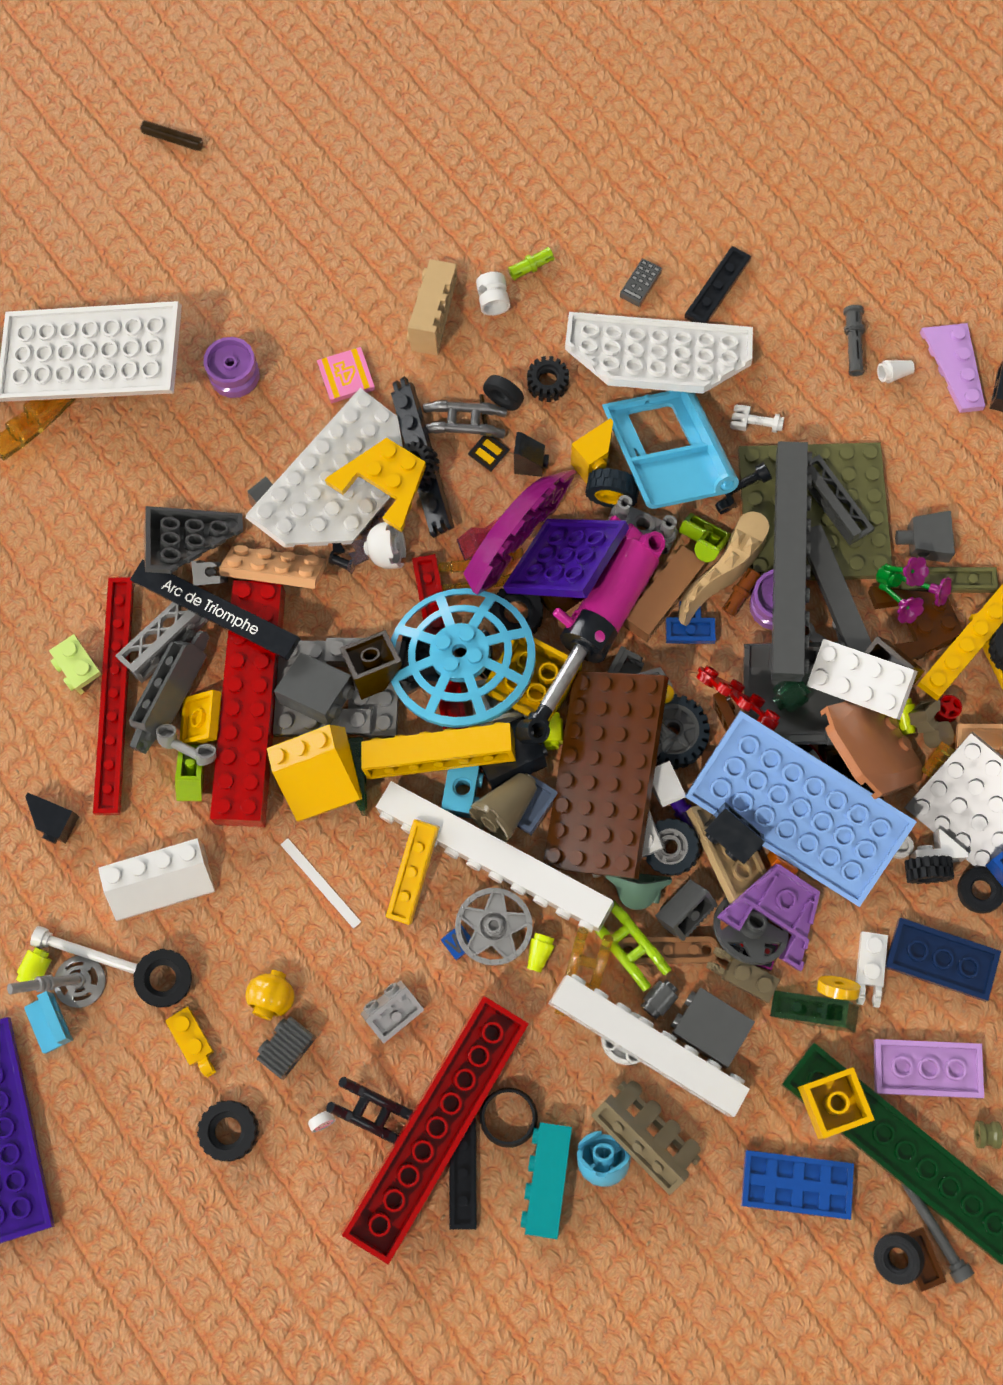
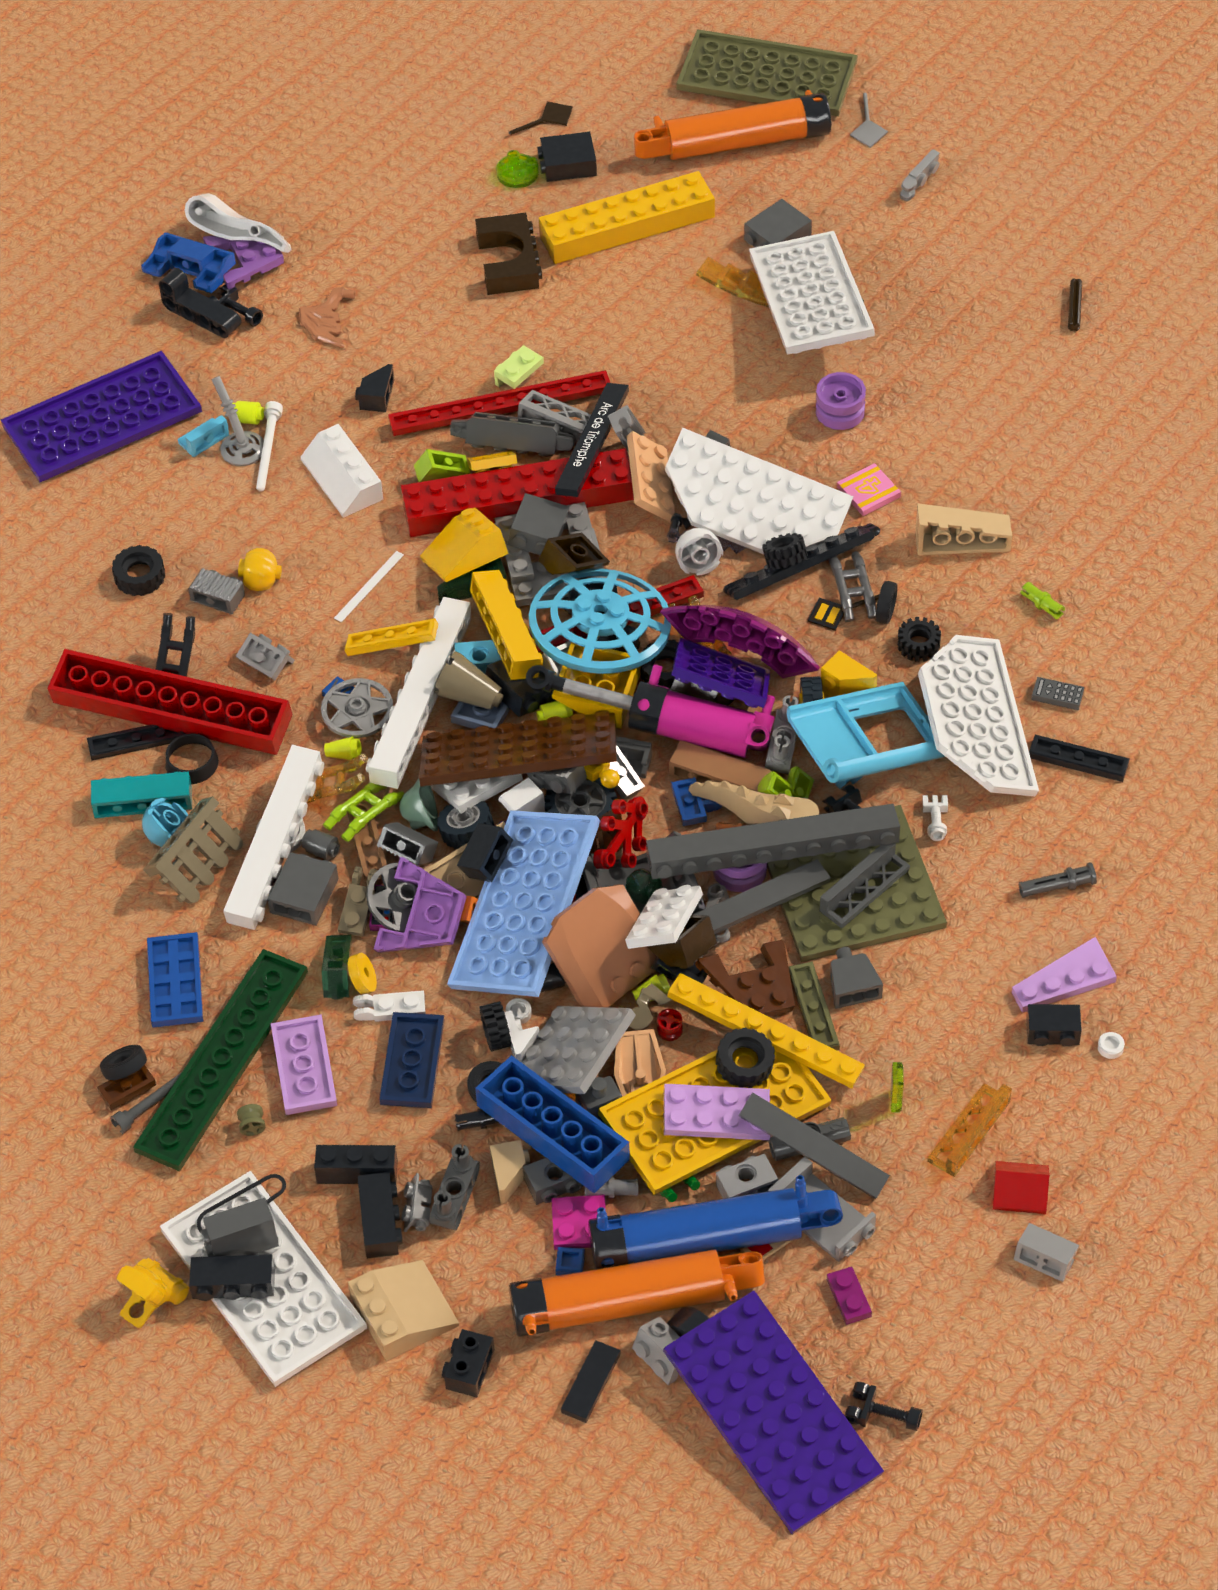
camera: 75 degrees right, 20 degrees down
(148, 964) = (253, 478): black tyre -> none
(167, 738) = (466, 444): light grey bar -> none
(183, 535) = (653, 396): dark grey slope -> none
(191, 1040) = (208, 531): yellow plate -> none
(321, 1121) = (155, 627): white tile -> none
(389, 470) = (763, 524): yellow wing -> none
(492, 293) = (990, 576): white wheel -> none
(529, 456) = (825, 633): black slope -> none
(836, 1103) = (250, 978): yellow brick -> none
(894, 369) = (1035, 920): white cone -> none
(914, 575) = (790, 944): magenta plant -> none

